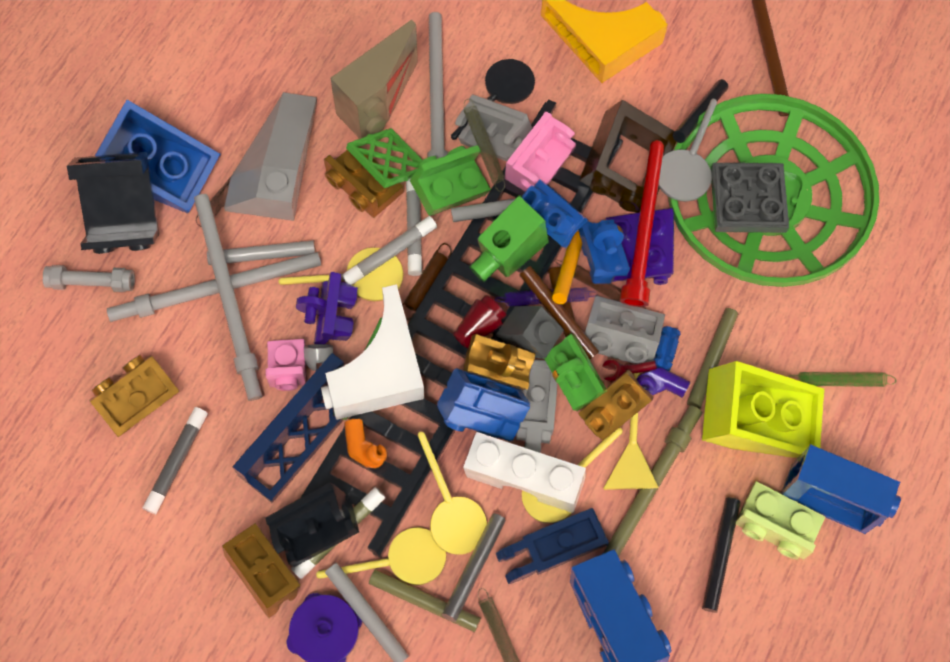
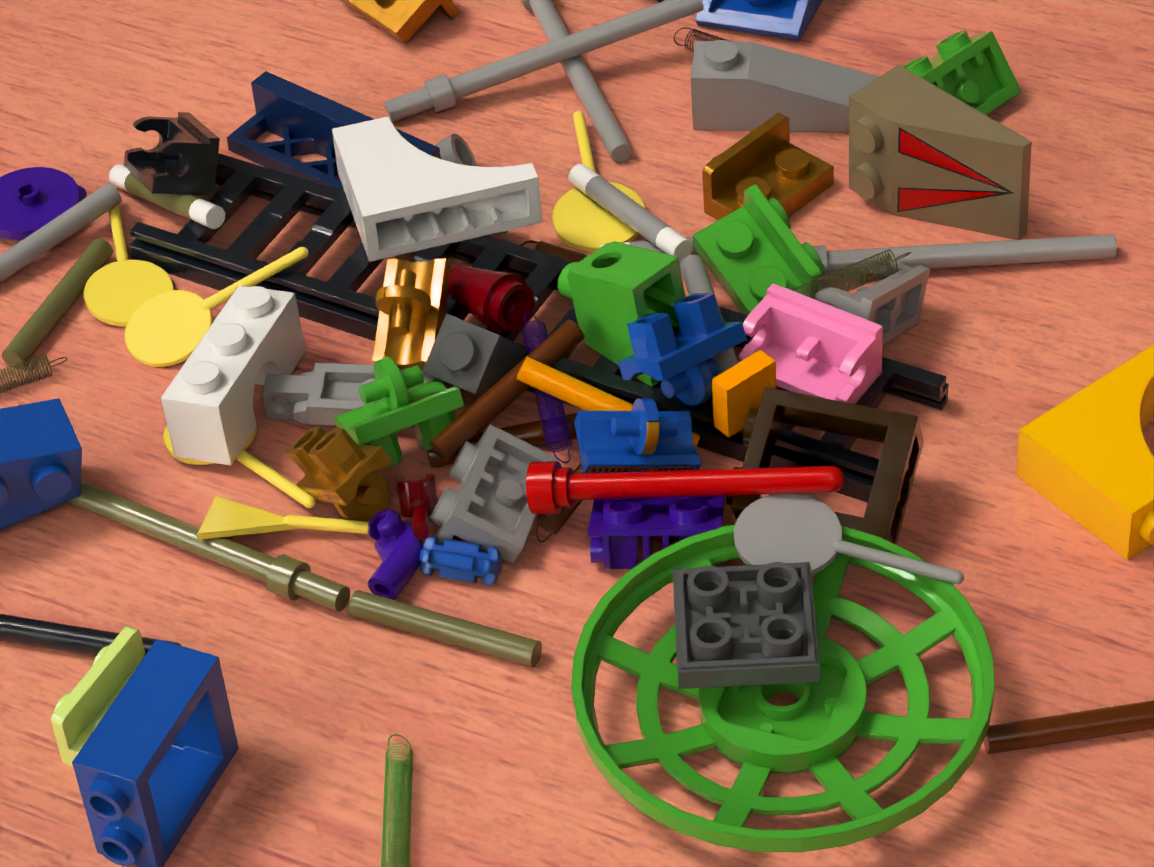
camera: 95 degrees right, 25 degrees down
(175, 460) = (298, 49): dark grey bar -> none
(261, 569) = (109, 119): pearl gold hinge -> none
(267, 252) = (630, 98): light grey bar -> none
(286, 364) = (438, 124): bright pink bracket -> none
(292, 73) = (969, 70): none -> bright green bracket
(328, 324) = (549, 152): dark purple hips -> none
(354, 148) = (836, 180): bright green window -> none
(361, 449) = (286, 191): orange arm -> none
(473, 567) = (97, 340): flat silver bar -> none
(482, 405) = (338, 300): blue brick -> none
(506, 82) = (991, 349): black piece -> none
(556, 545) = (122, 432): dark blue hinge -> none
(576, 189) = (740, 390): none -> light orange tile
(691, 120) = (985, 604): black bar -> none
(761, 411) = (324, 680): neon yellow slope -> none

